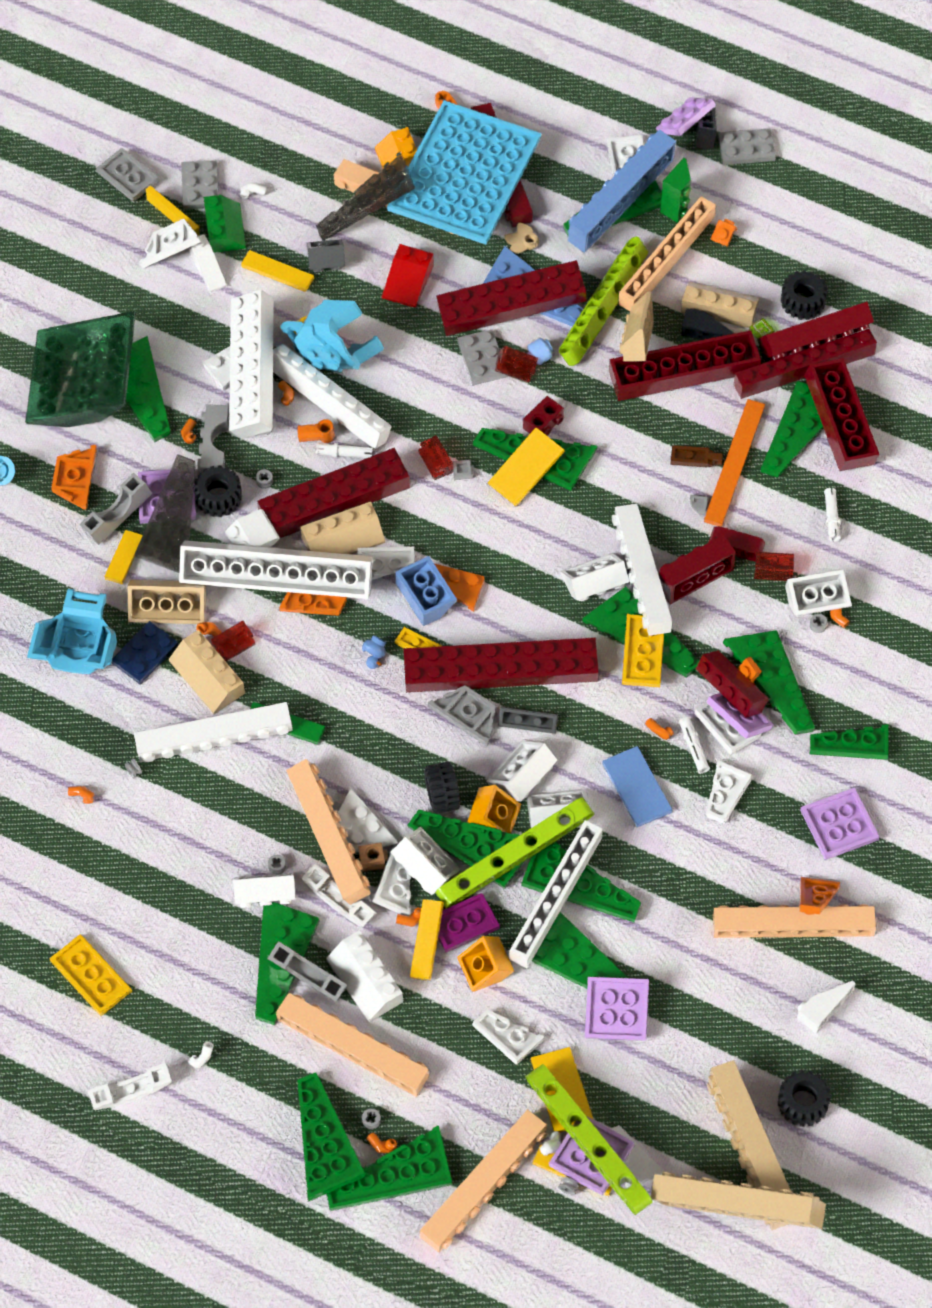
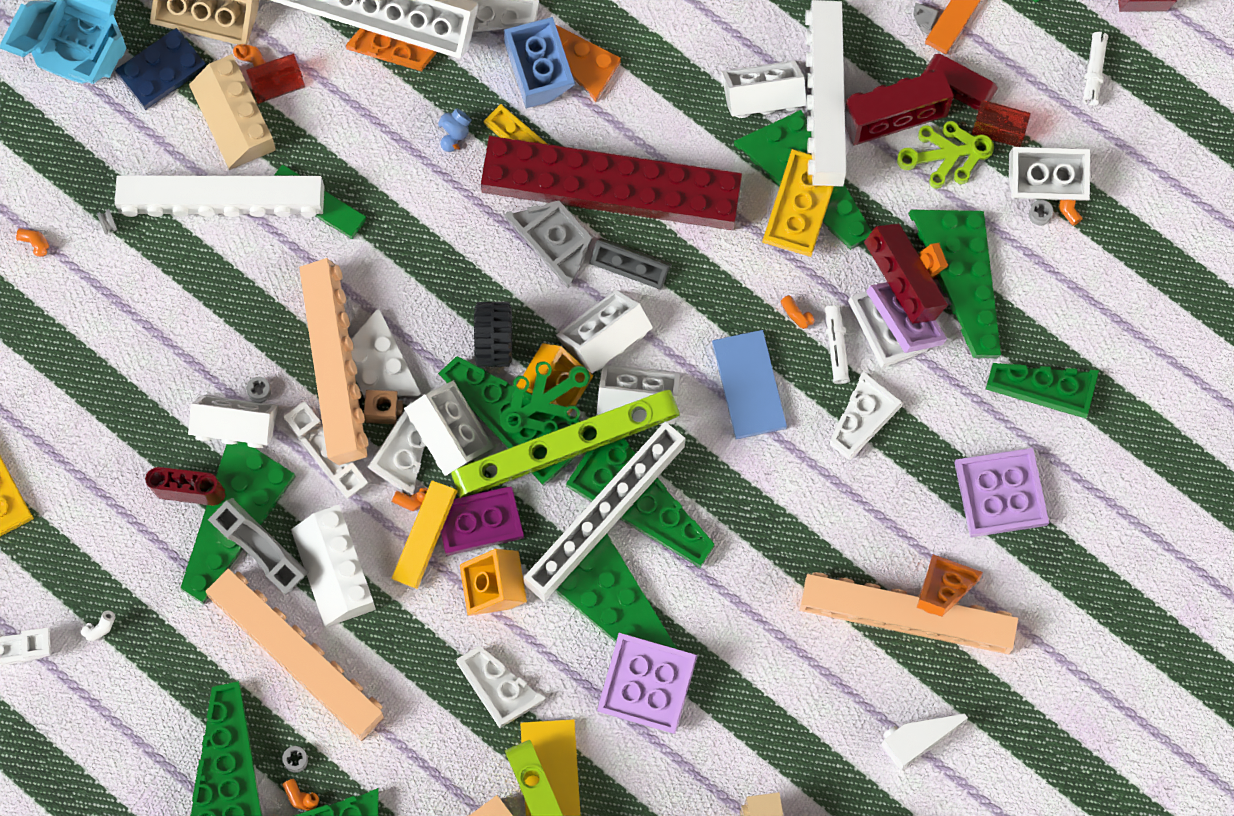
camera: 10 degrees right, 10 degrees up
(241, 942) = (185, 486): none -> dark red beam
(489, 826) = (541, 402): none -> green plant
(740, 594) = (949, 152): none -> lime plant

